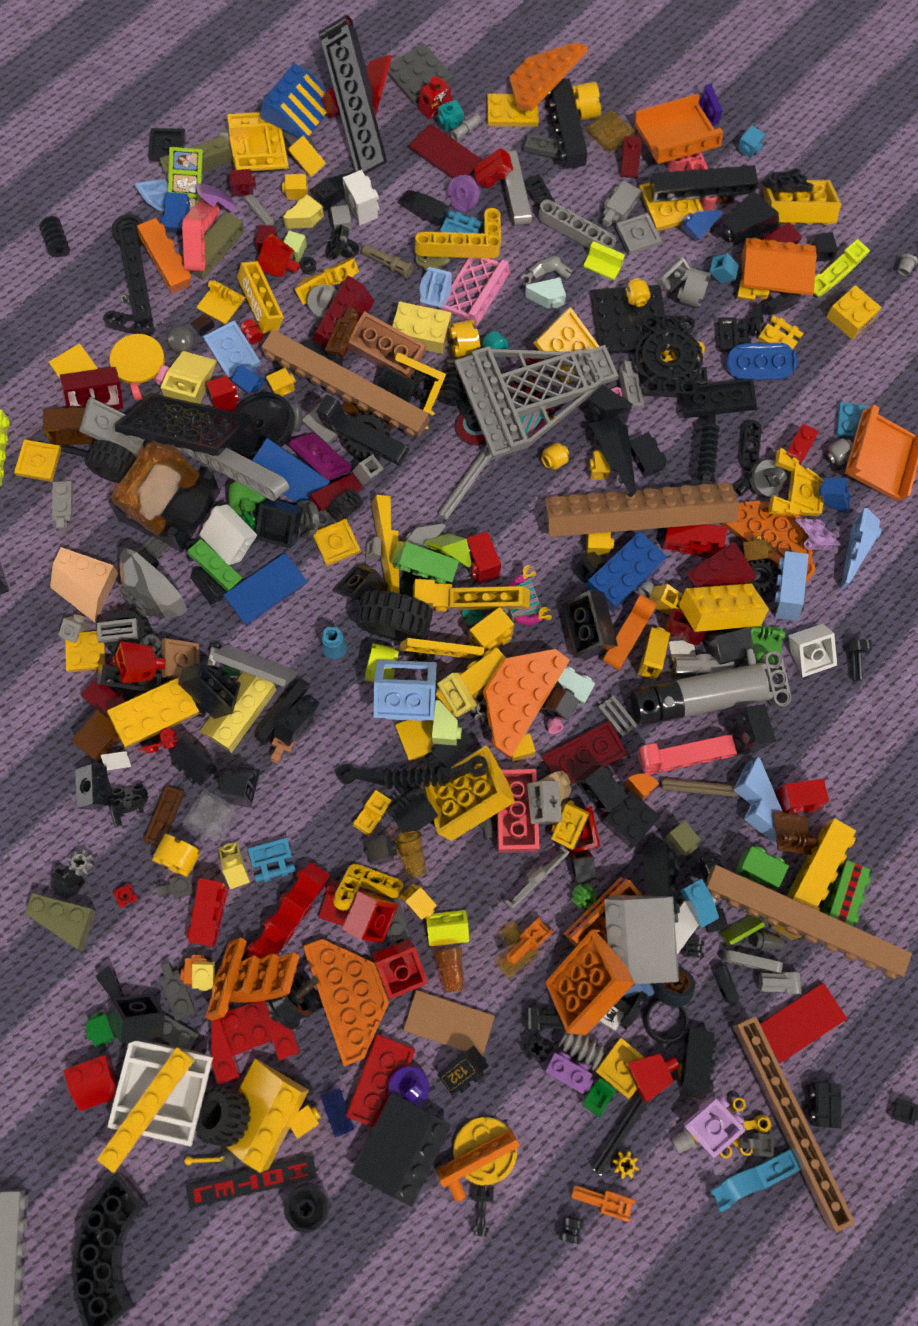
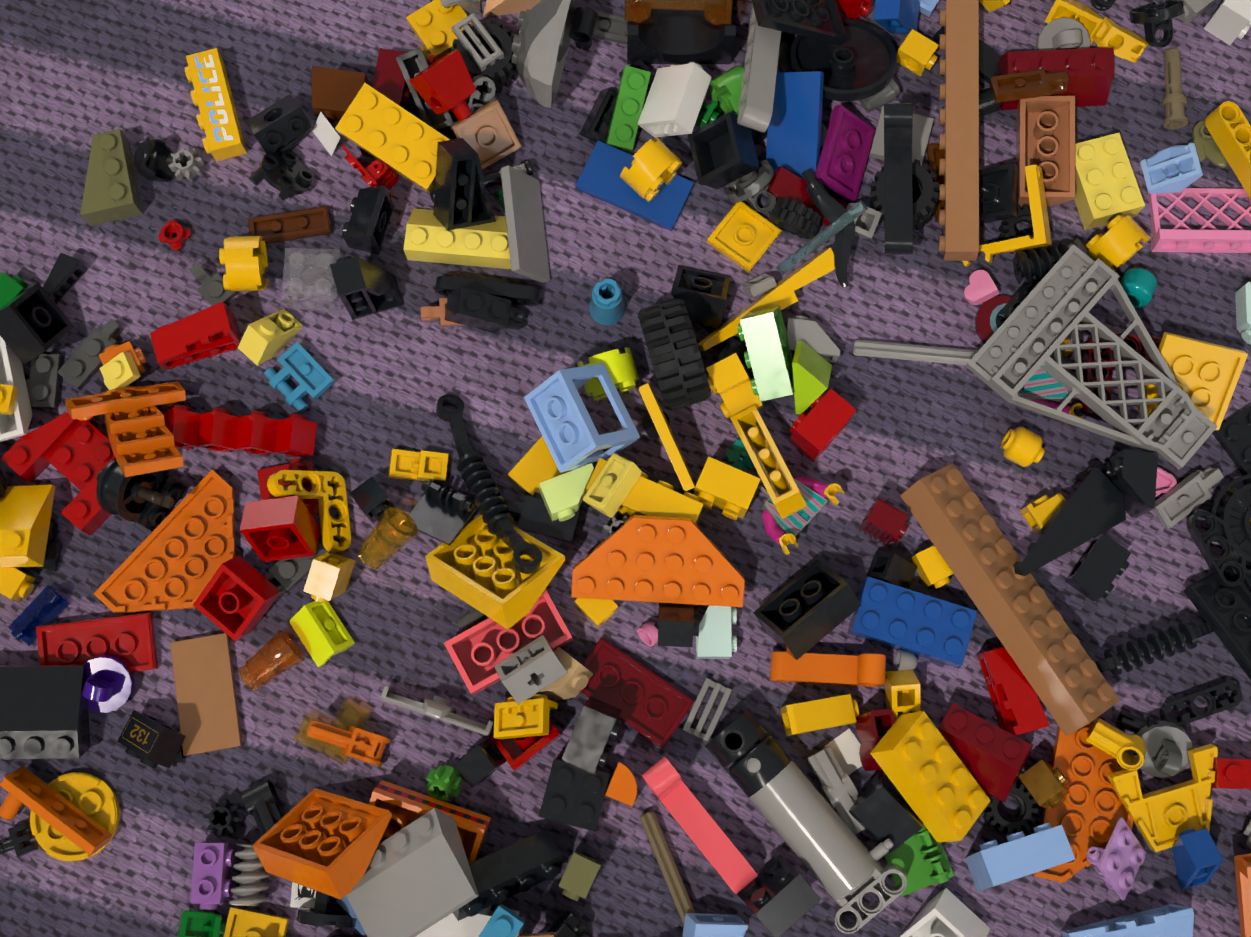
camera: 65 degrees right, 5 degrees up
(50, 822) = (215, 104): none -> yellow brick
(265, 570) = (651, 168): none -> yellow brick
(363, 479) = (832, 211): none -> black piece
(367, 496) = (822, 237): none -> clear light blue bar
(446, 427) = (980, 288): none -> bright pink tile
(560, 554) = (884, 522): none -> dark red brick
(752, 498) = (1116, 742): none -> yellow piece

